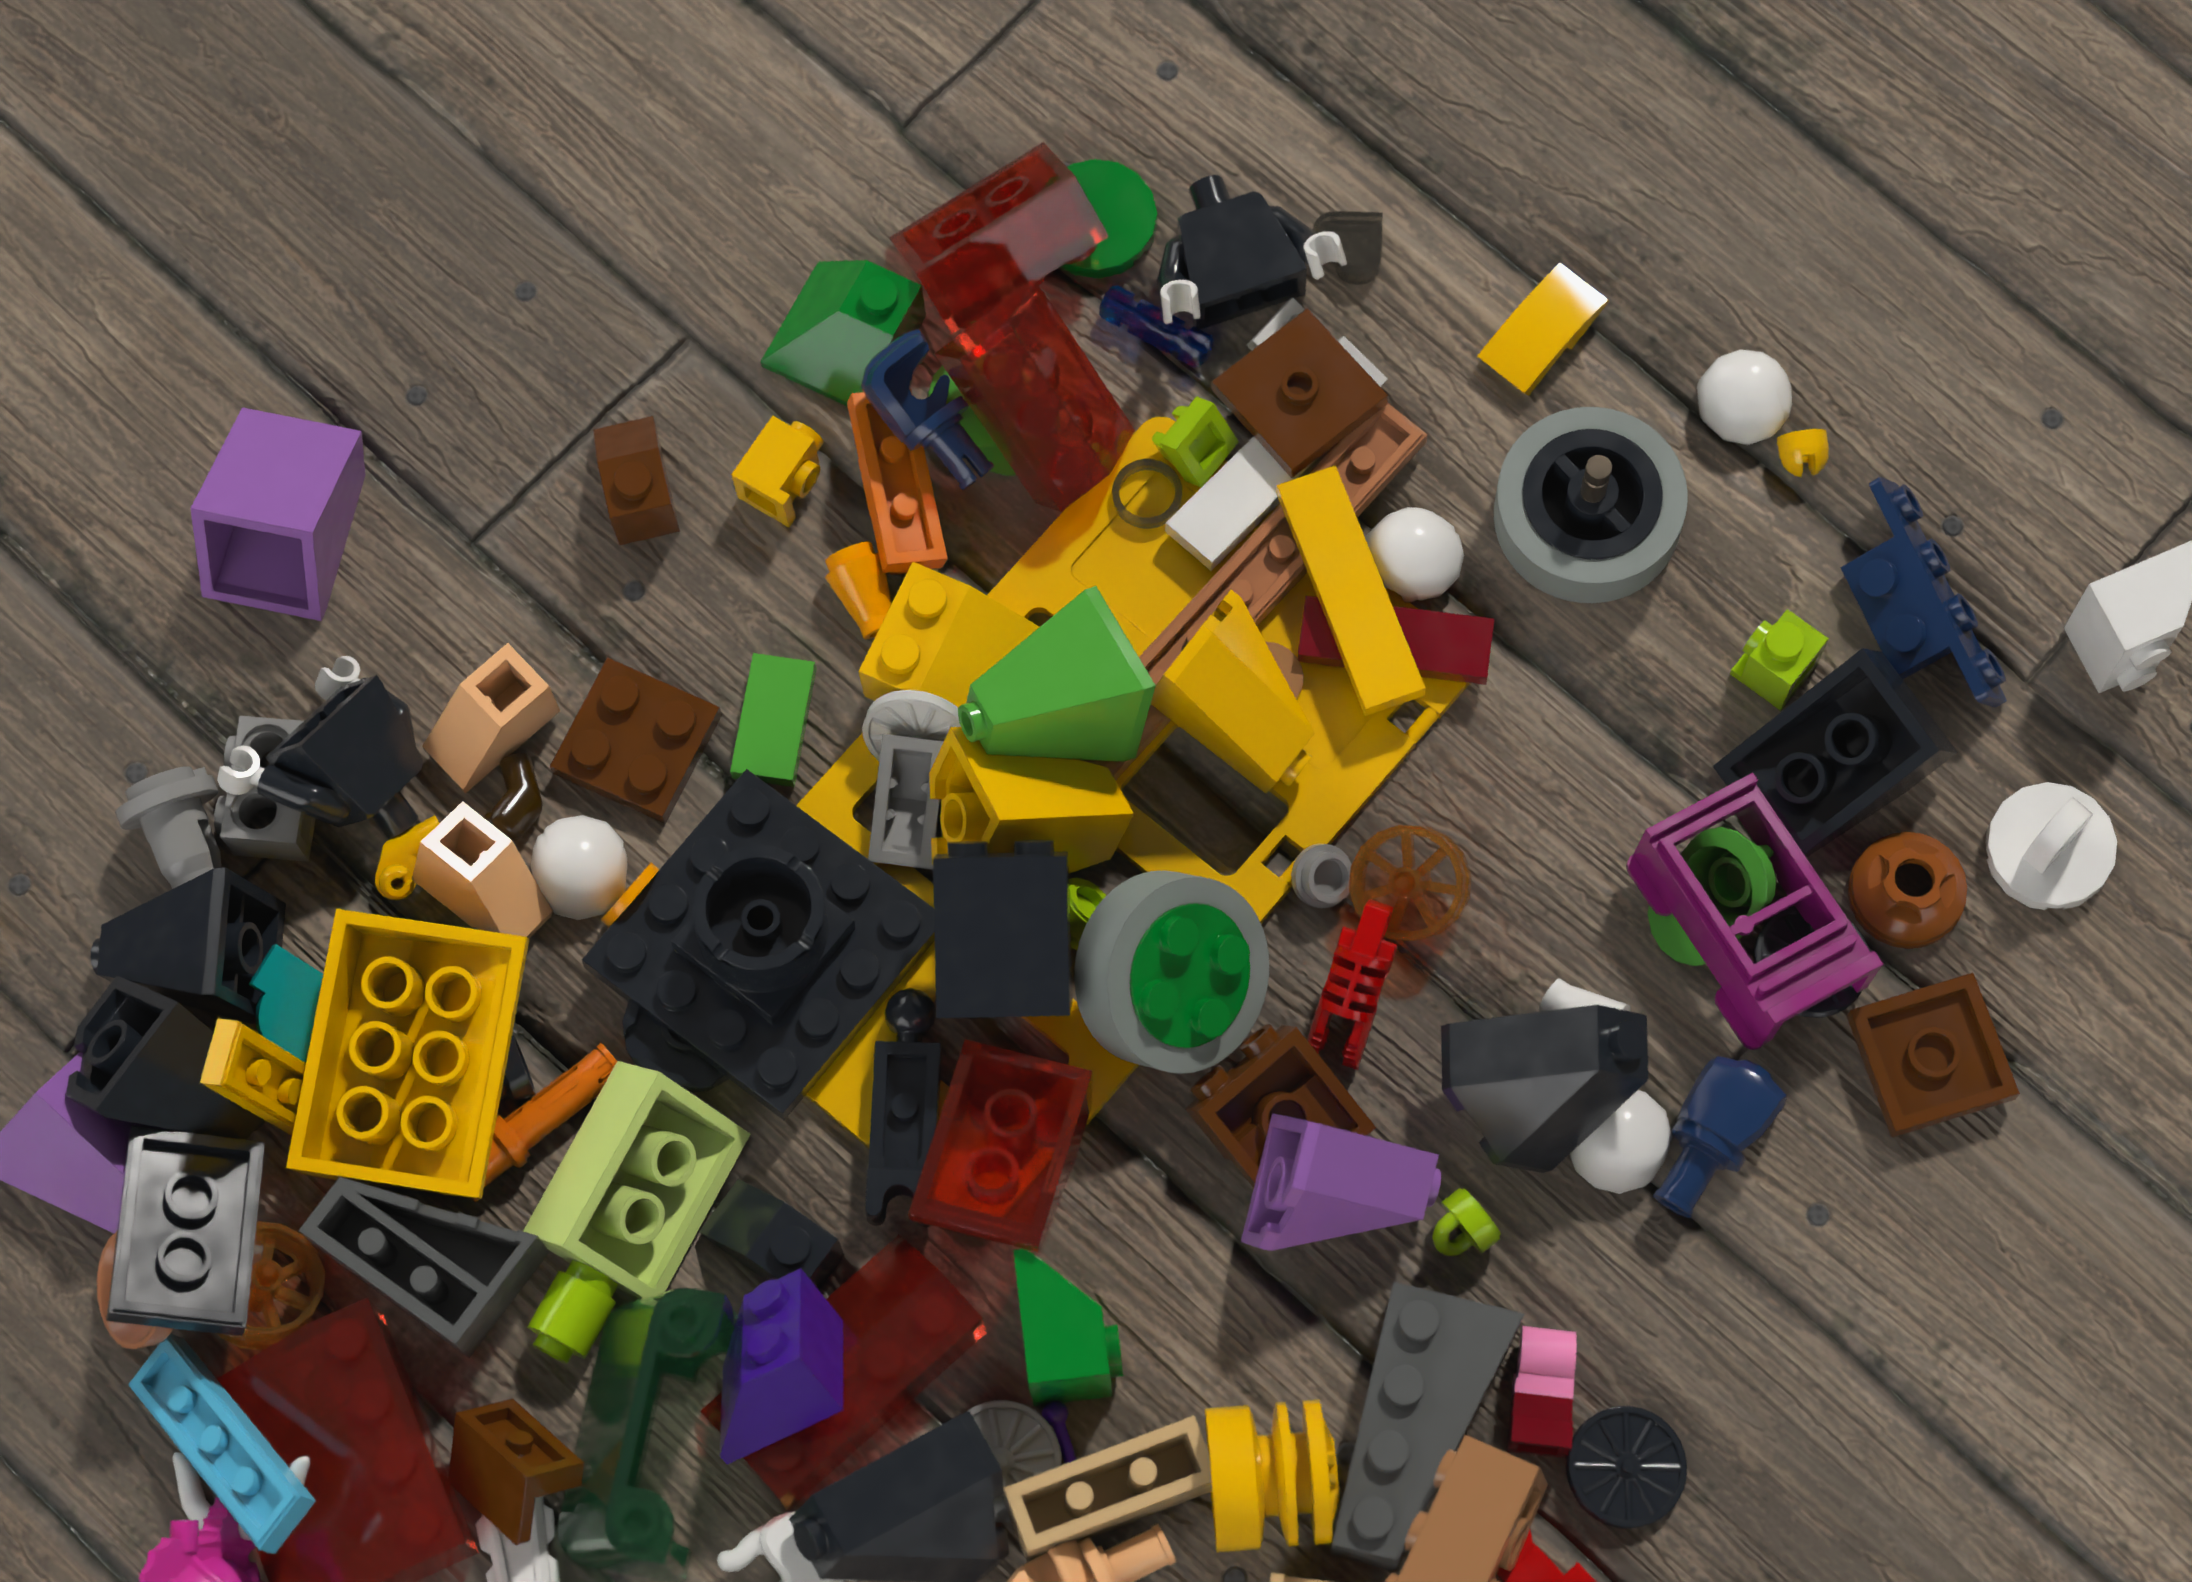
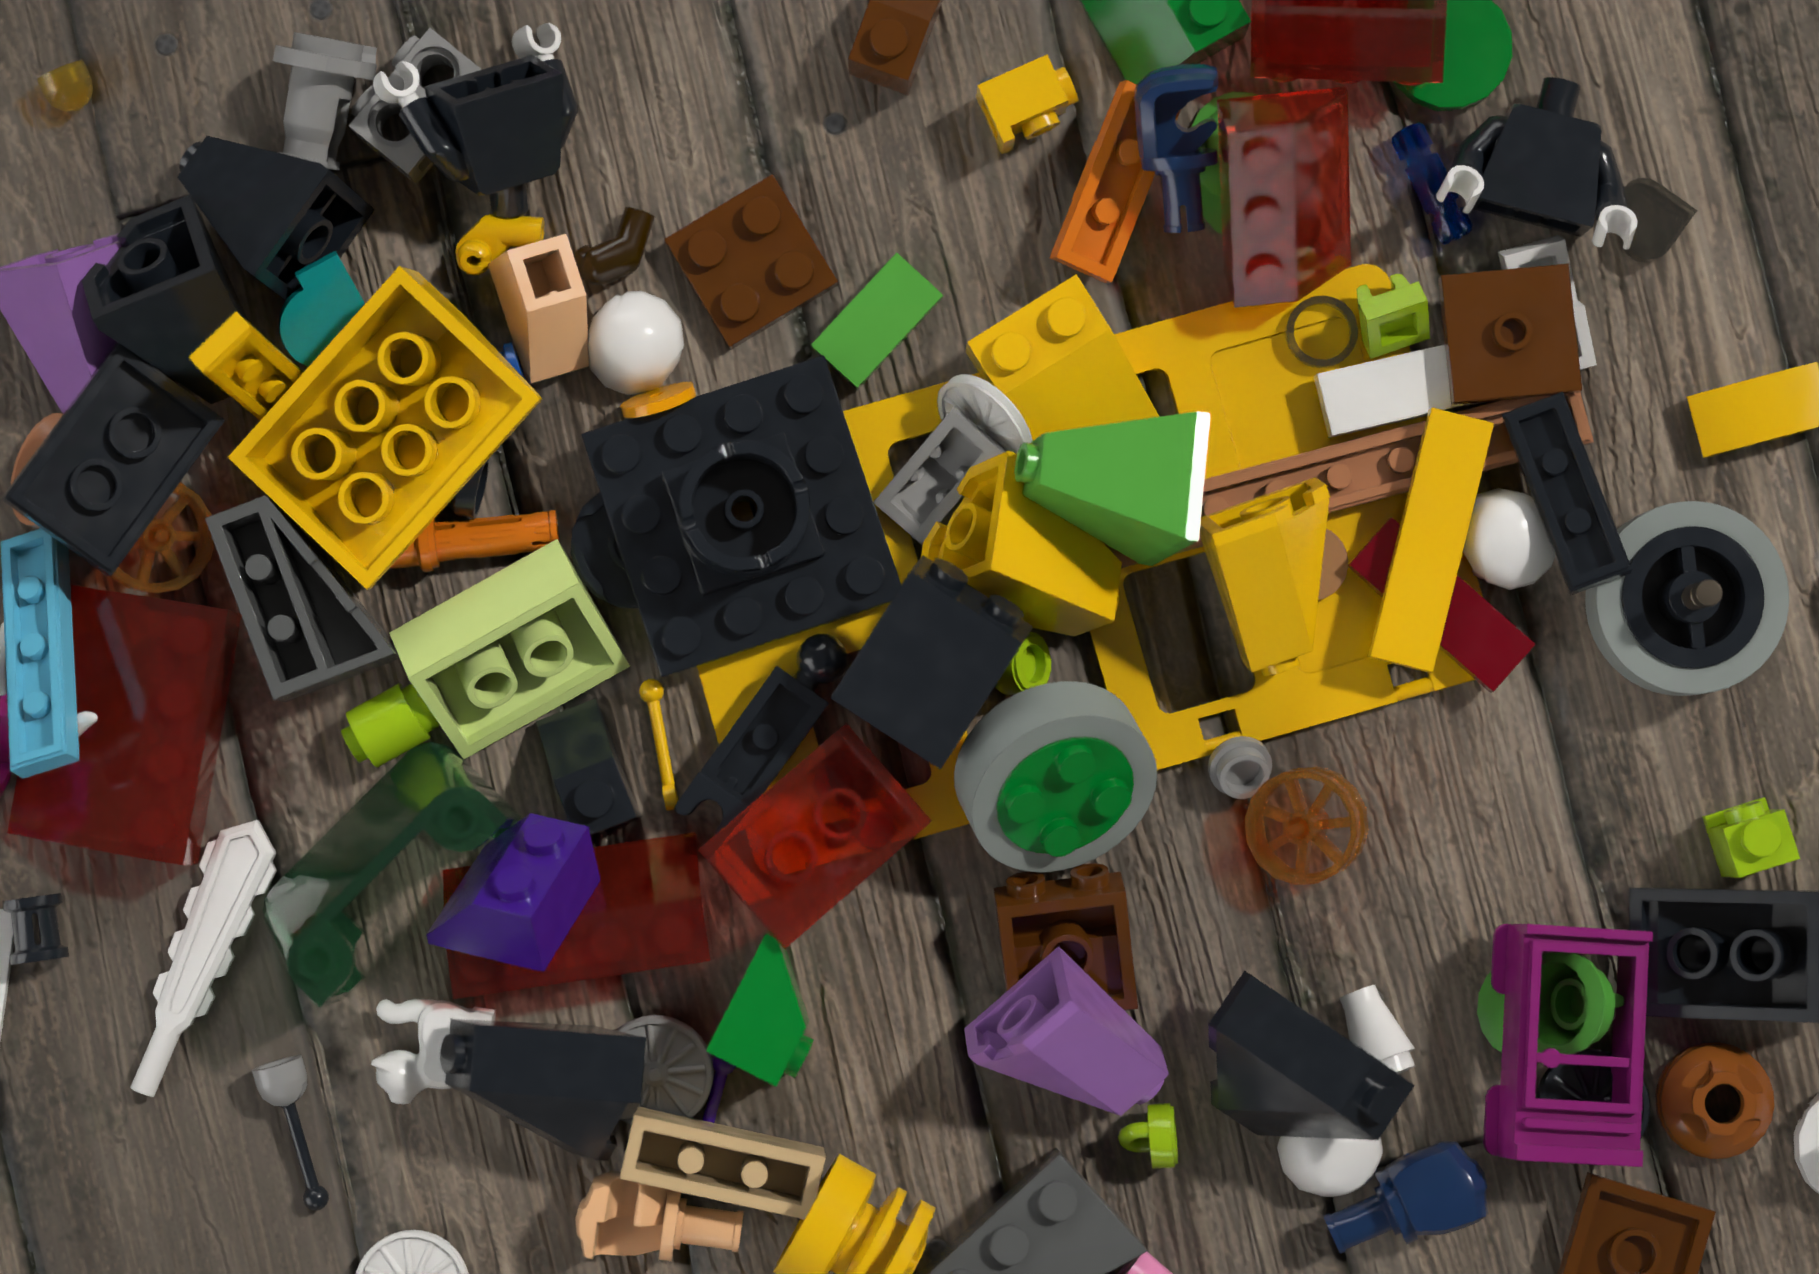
camera: 25 degrees right, 15 degrees up
(490, 718) = (637, 166): light nougat slope -> none
(507, 1461) = (260, 820): reddish brown panel -> none
(783, 1143) = (651, 692): none -> yellow hinge
(860, 585) = (1025, 256): light orange cone -> none
(1355, 981) = (1203, 879): red hinge -> none
(1433, 480) = (1566, 493): none -> black tile

